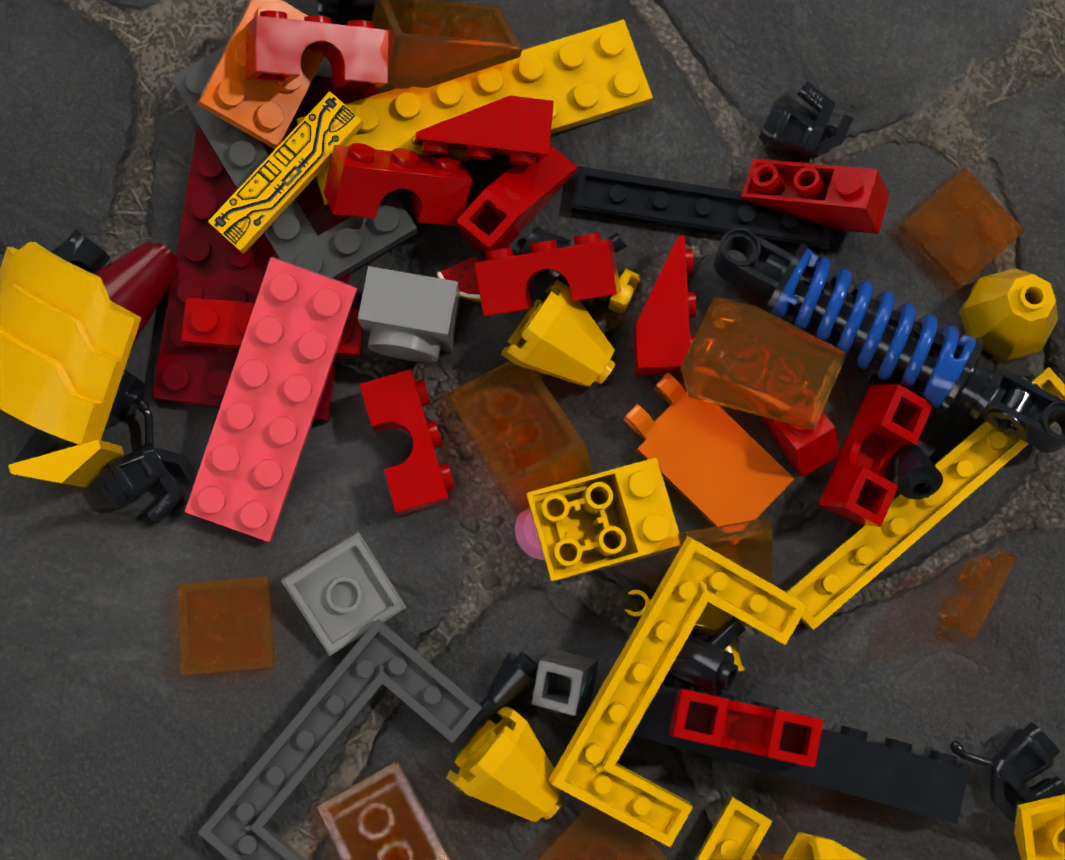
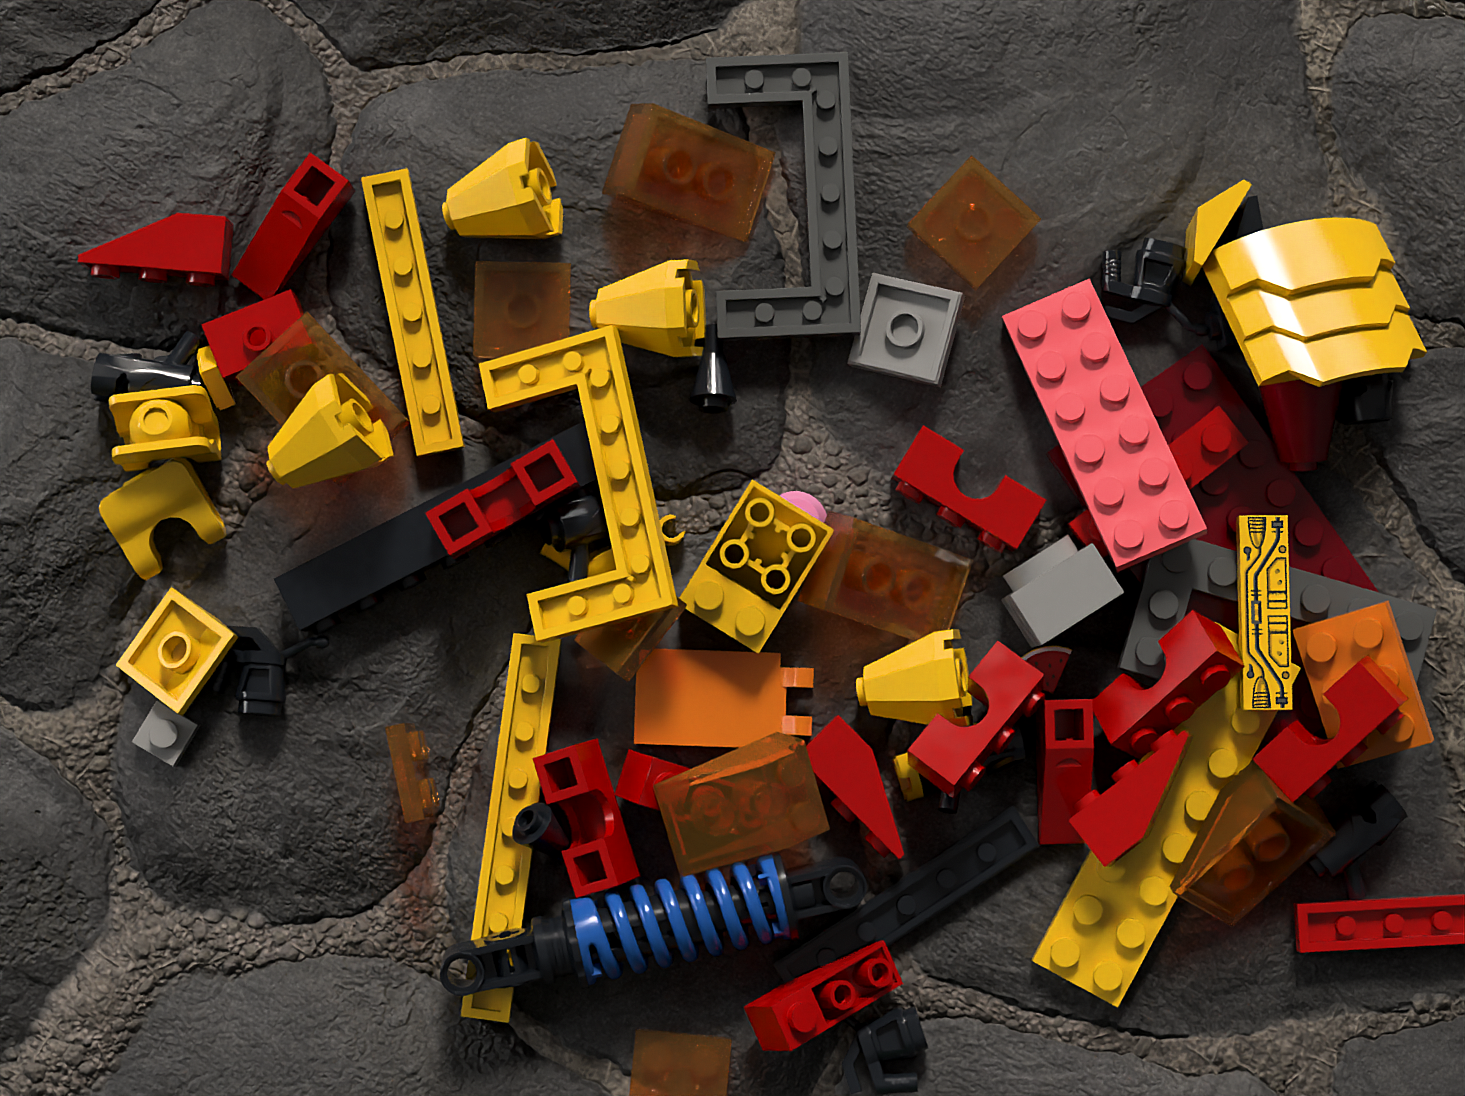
camera: 135 degrees right, 5 degrees up
(565, 682) = (671, 415): flat silver brick -> none
(1010, 313) = (579, 1019): yellow cone -> none

